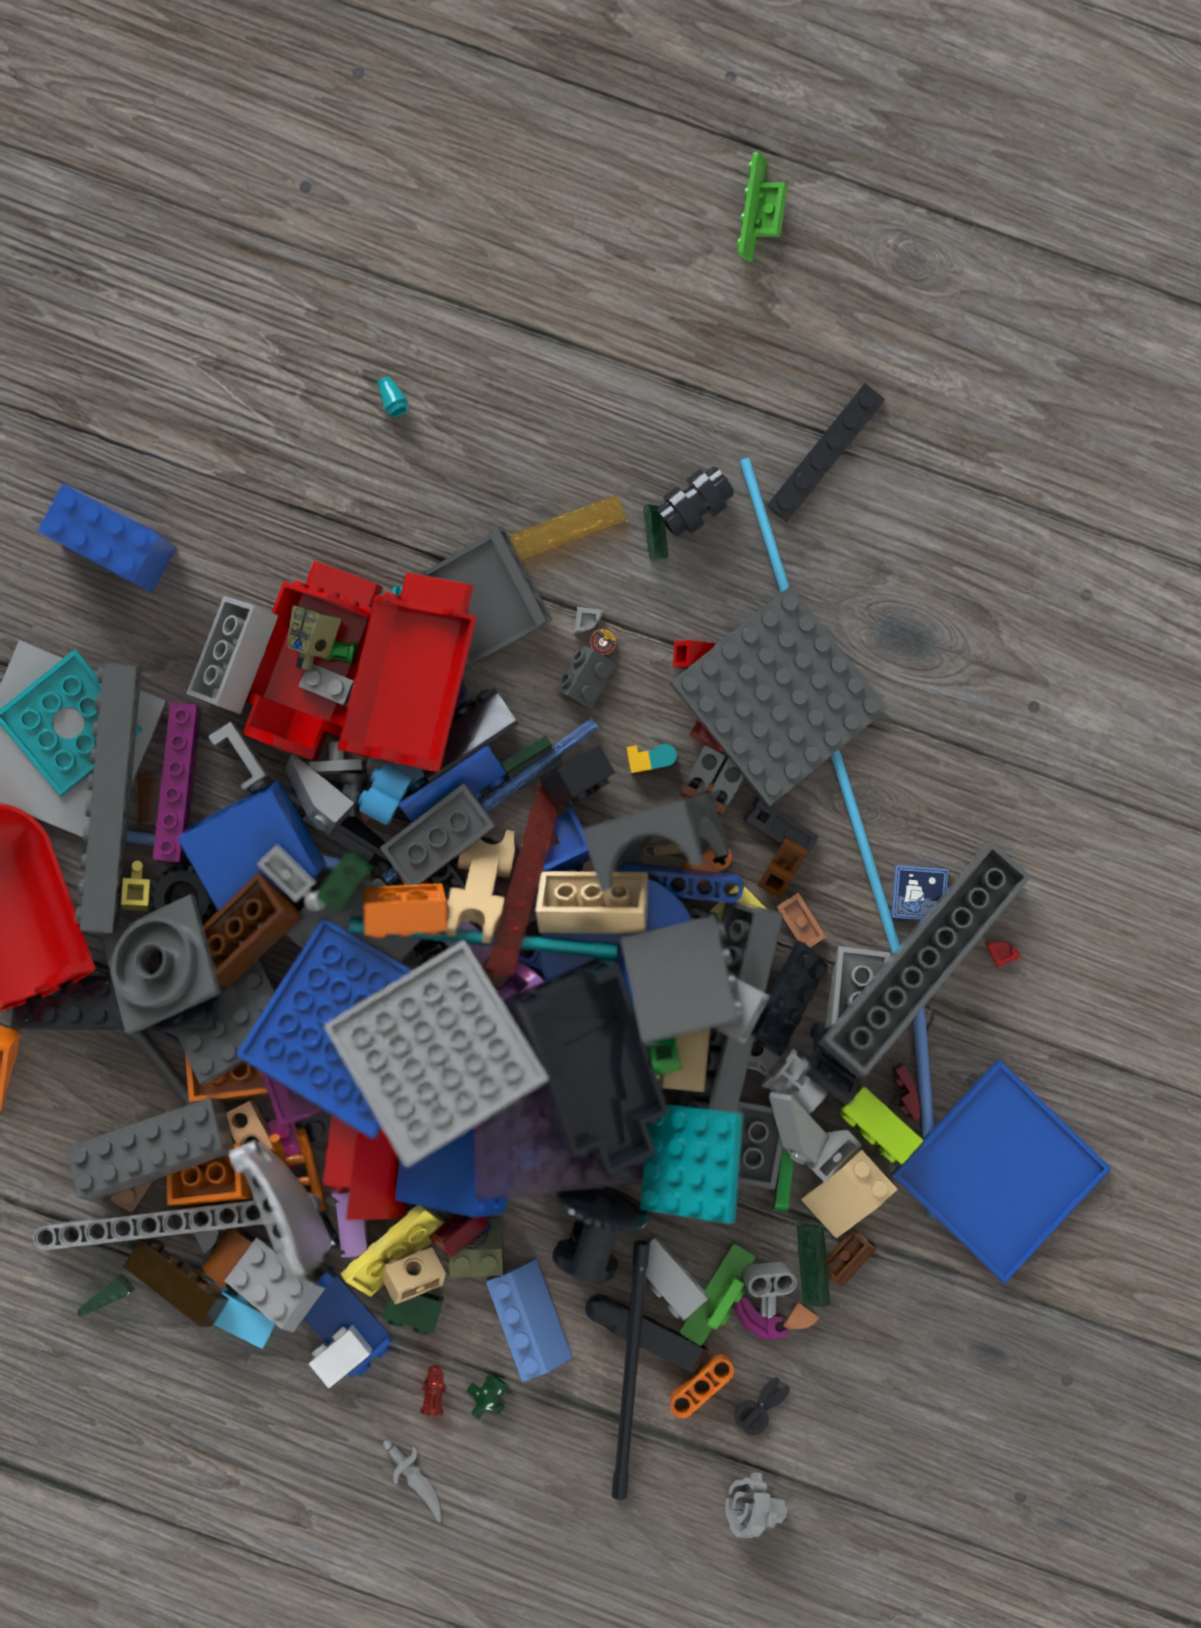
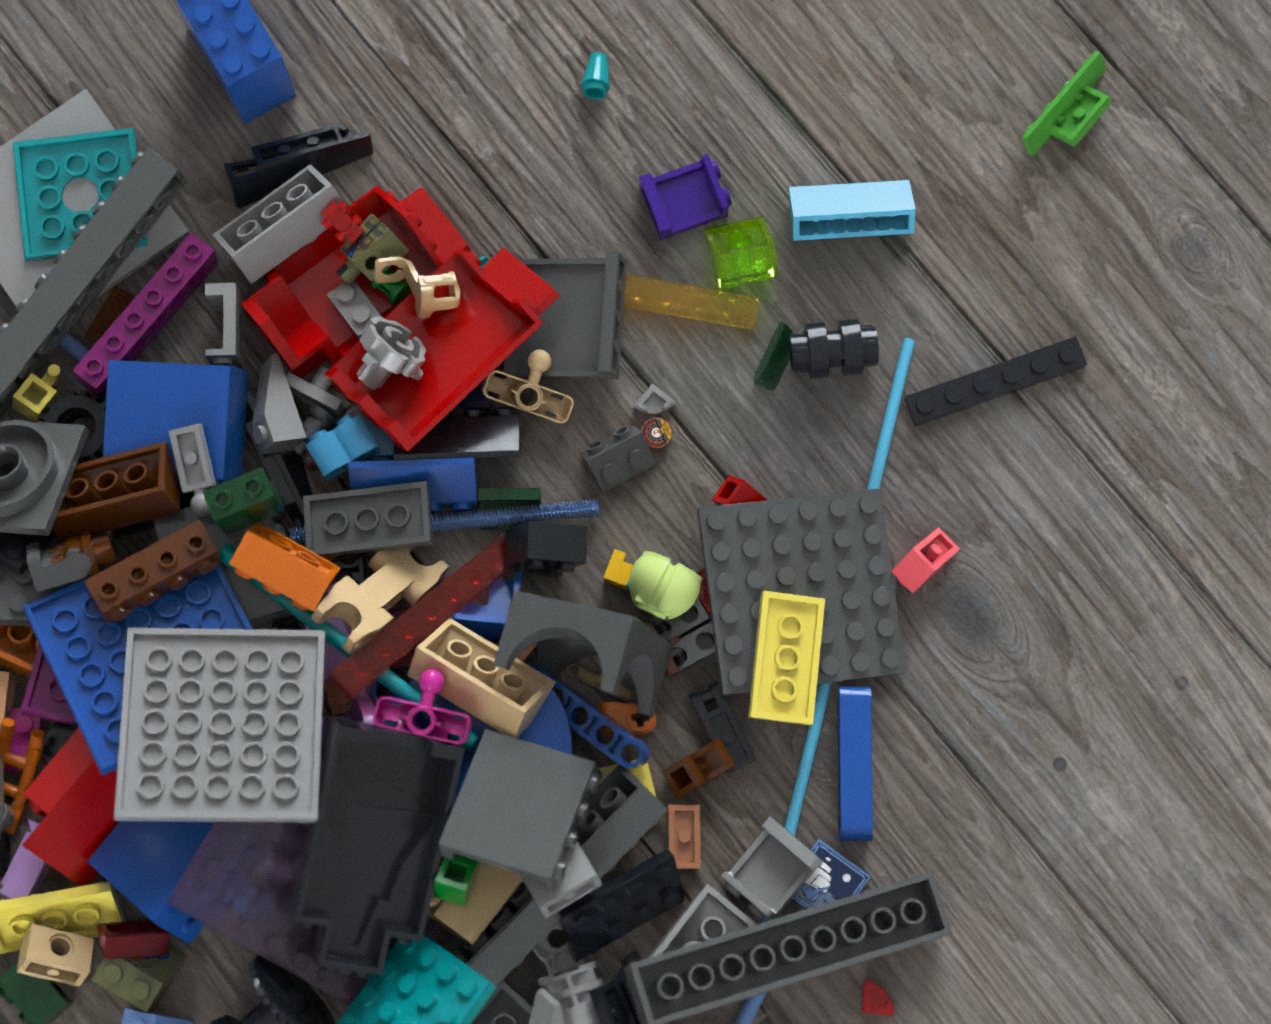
camera: 35 degrees right, 10 degrees down
(201, 602) = (282, 159): none -> black wedge
(246, 1000) = (68, 560): none -> hips
(272, 627) = (347, 226): none -> red piece
(313, 973) = (153, 572): none -> reddish brown brick
(370, 642) = (421, 286): none -> tan piece
(377, 707) = (388, 353): none -> light grey piece
(479, 674) = (511, 388): none -> tan piece
(515, 450) = (685, 197): none -> dark purple panel
(582, 467) = (741, 252): none -> clear neon green slope
(587, 951) = (441, 723): none -> dark pink piece
(644, 386) = (851, 210): none -> medium azure brick
(681, 757) = (662, 587): none -> yellowish green piece
(800, 753) = (786, 658): none -> light yellow plate
(853, 618) = (925, 560): none -> coral slope
(877, 908) = (771, 870): none -> light grey panel
(890, 796) = (854, 763): none -> blue beam

